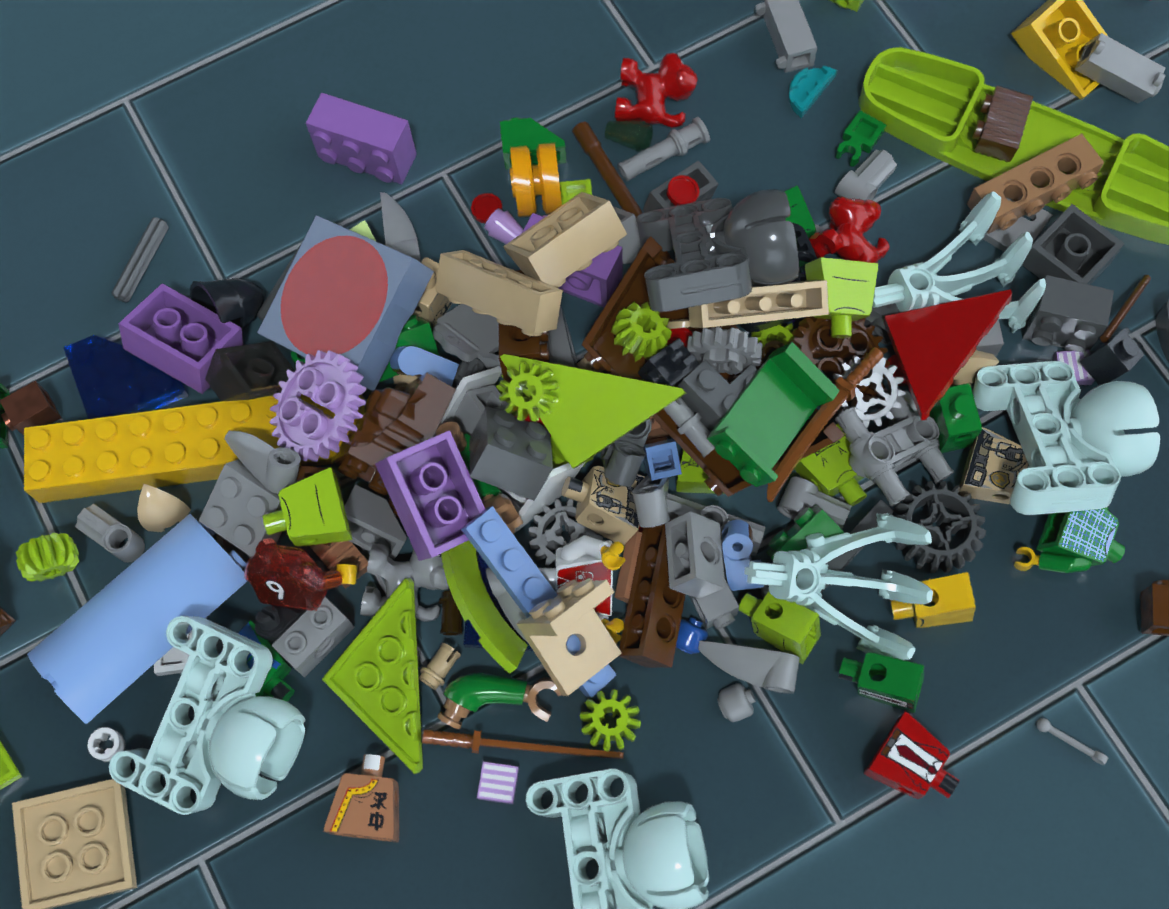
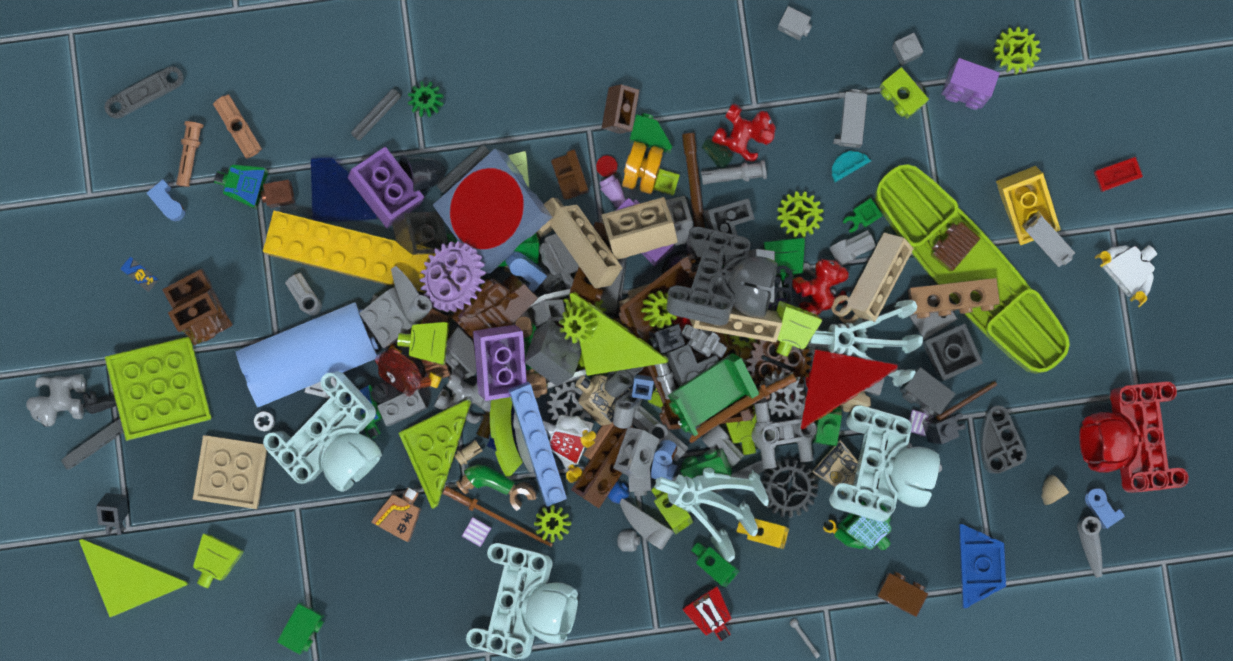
camera: 20 degrees right, 15 degrees up
(47, 557) = (263, 297): lime gear -> none
(159, 509) = (338, 293): tan brick -> none
(202, 213) = (432, 102): none -> green gear
(361, 138) = (543, 92): medium lavender brick -> none
(398, 228) = (544, 165): light grey piece -> none
(440, 231) = (569, 175): none -> reddish brown panel
(475, 125) = (620, 109): none -> reddish brown brick
(566, 615) = (544, 462): tan bracket -> none
(683, 190) = (728, 217): red piece -> none
(776, 164) = (798, 205): none -> lime gear
(921, 200) = (876, 280): none -> tan hinge

